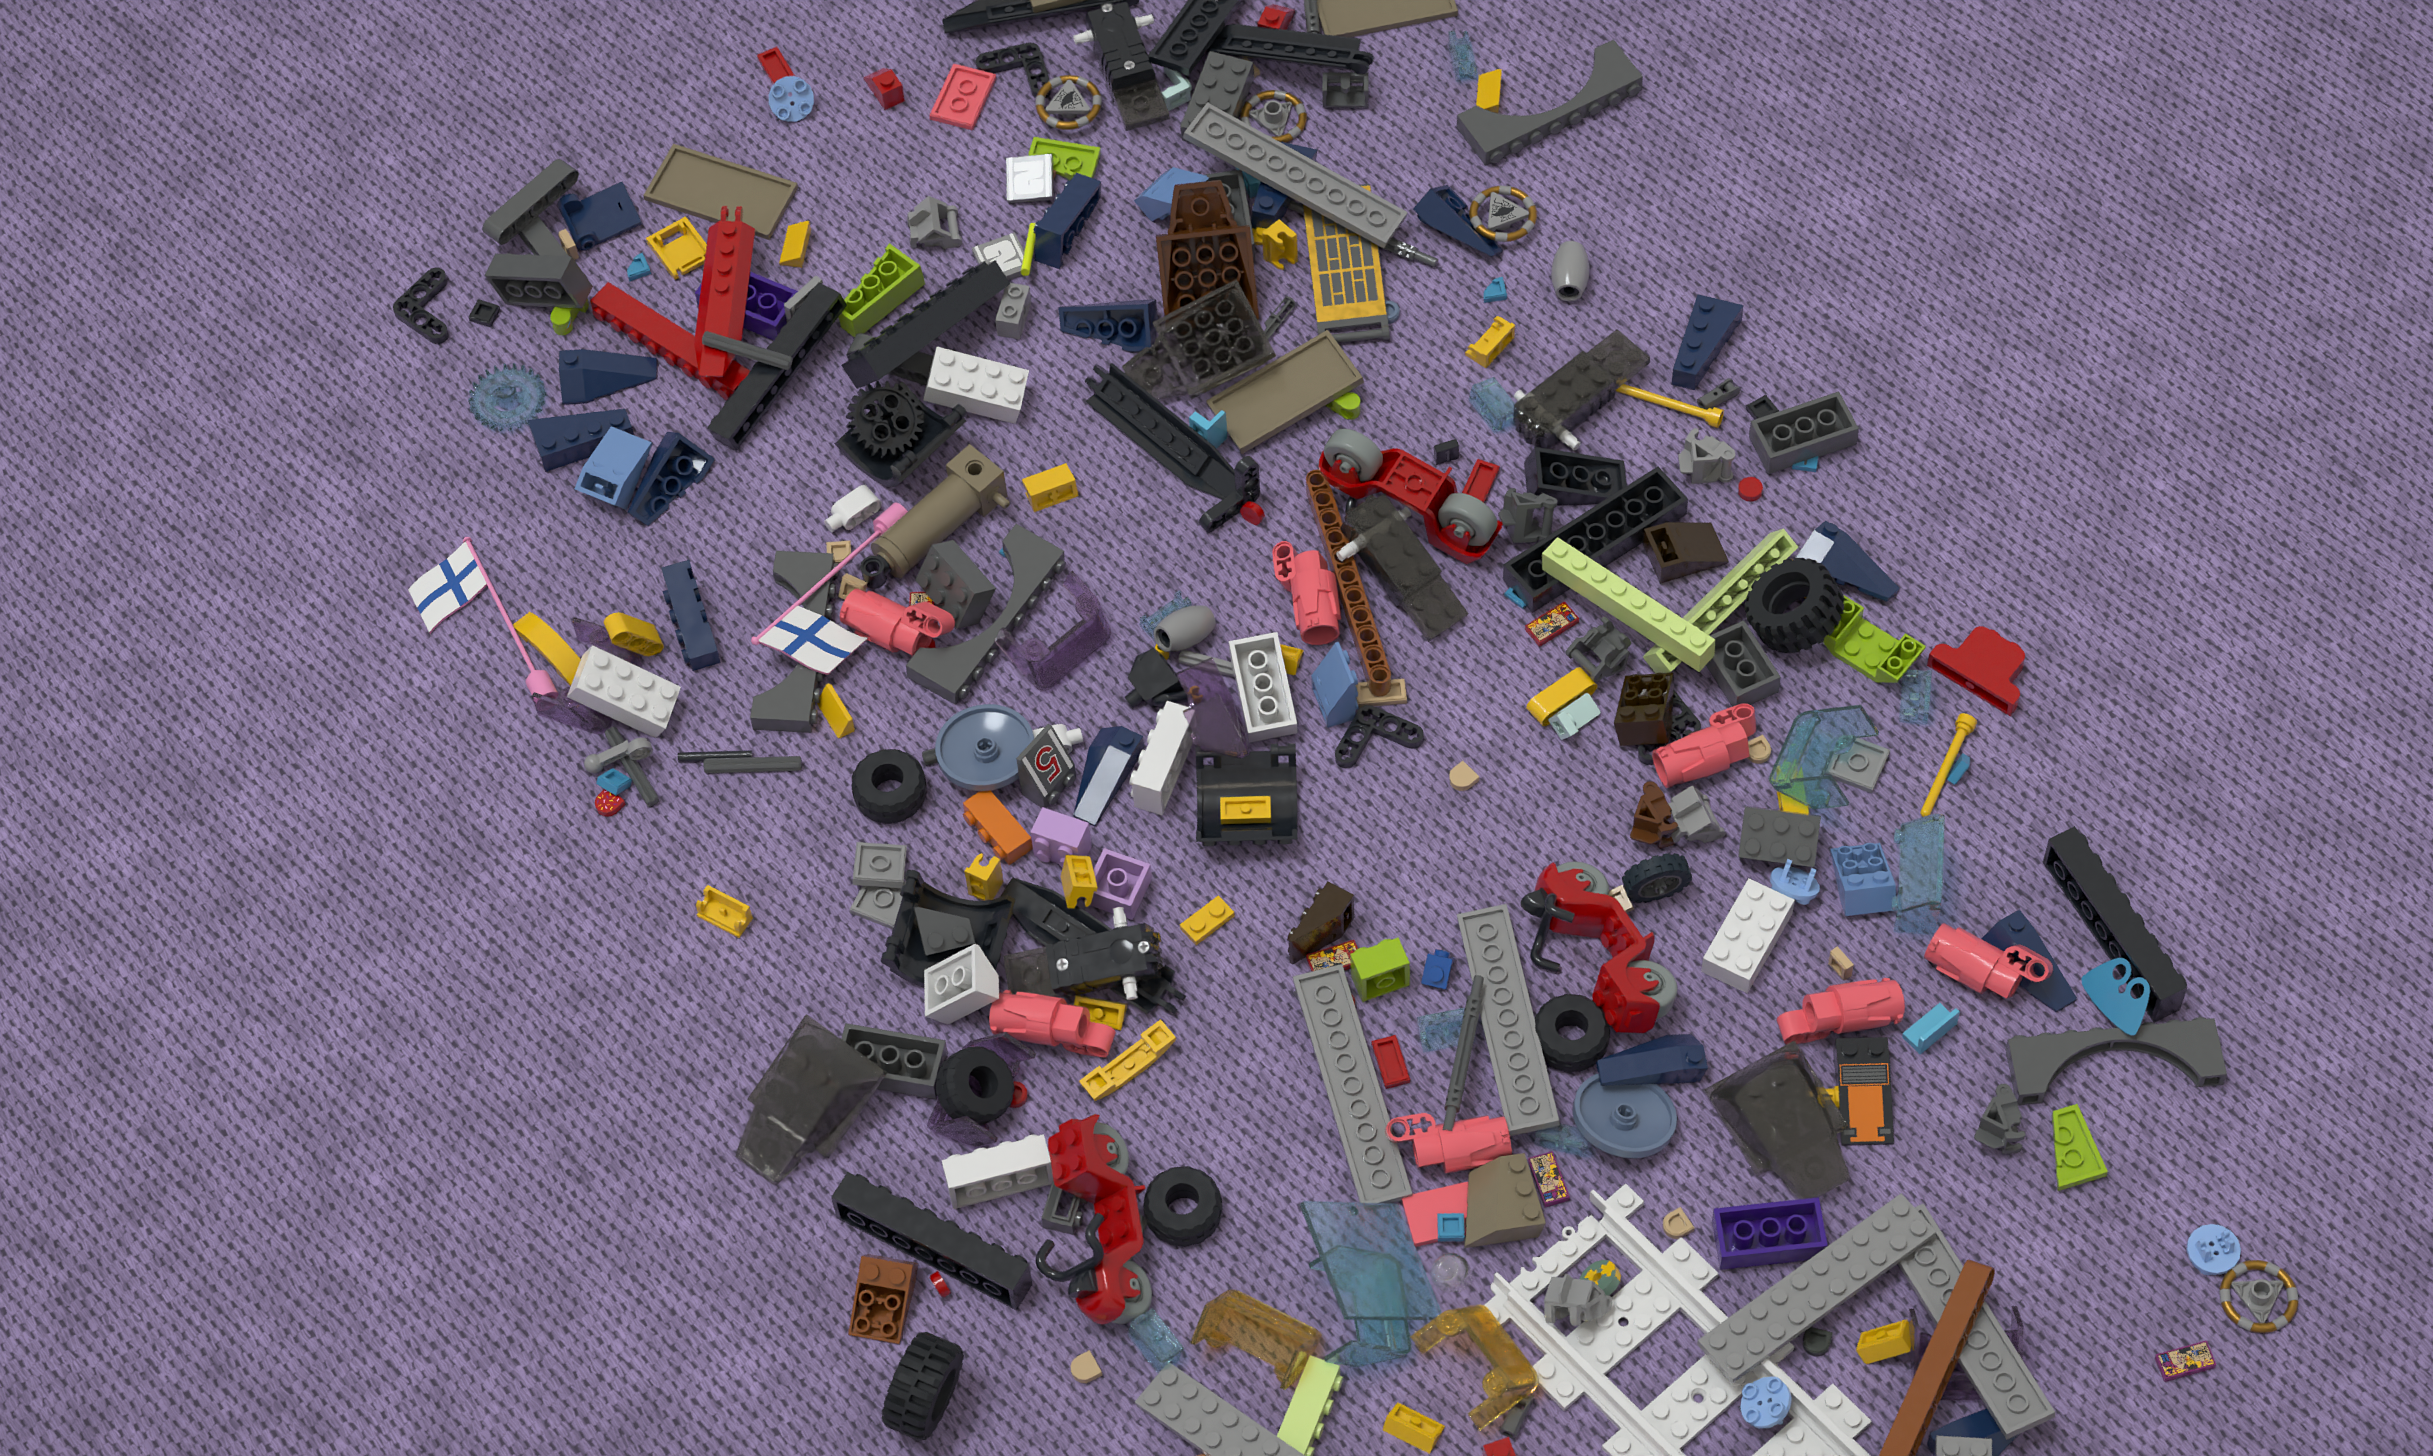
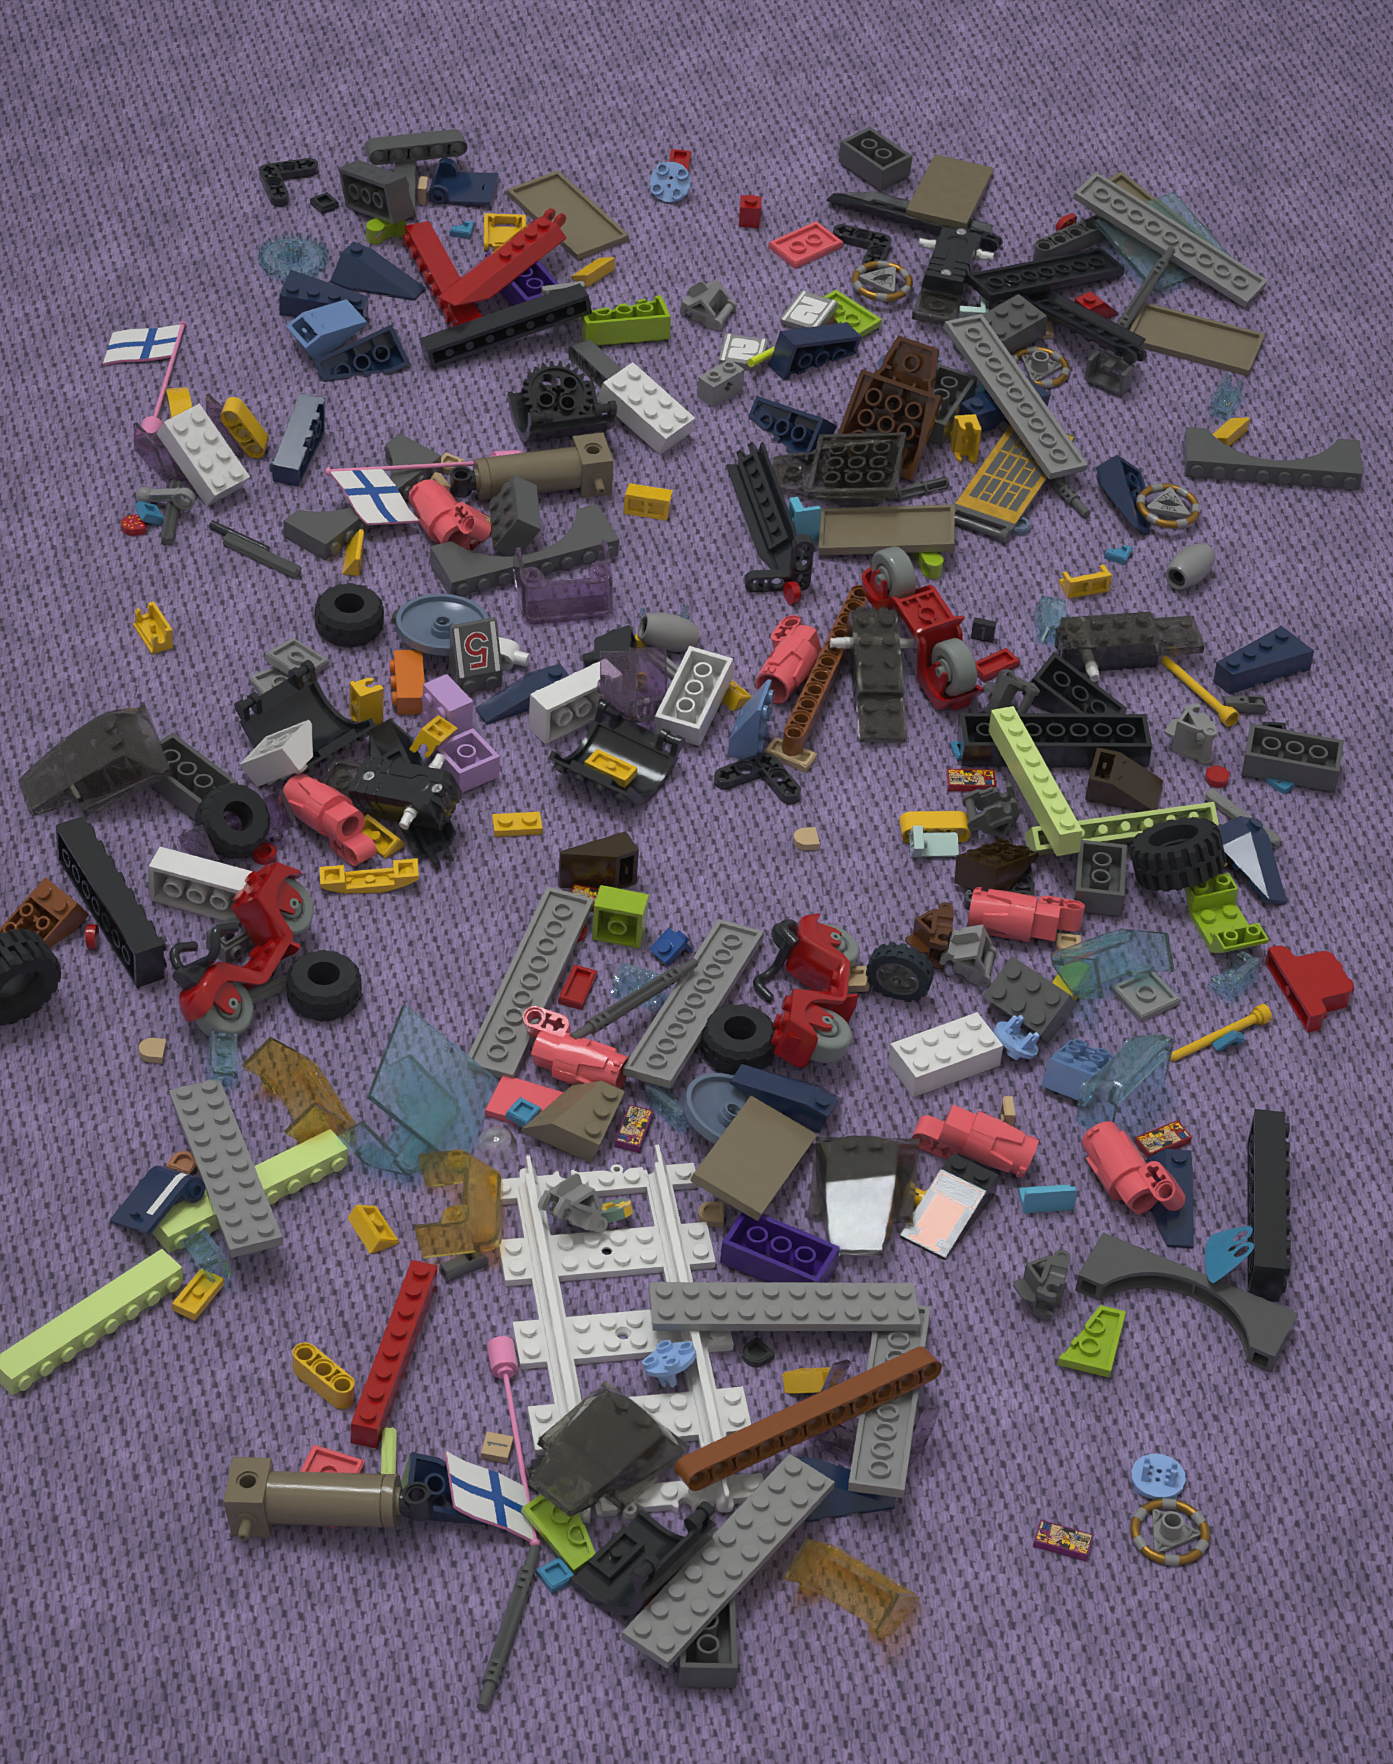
camera: 25 degrees right, 15 degrees down
(747, 350) = (487, 297): dark grey axle -> none
(853, 509) = (483, 441): white piece -> none
(925, 323) = (642, 347): black brick -> none
(942, 930) = (299, 709): dark grey wing -> none
(1682, 1153) = (753, 1158): none -> dark tan tile
(1795, 519) = (1234, 811): none -> light grey axle
(1978, 905) = (1165, 1137): none -> tile

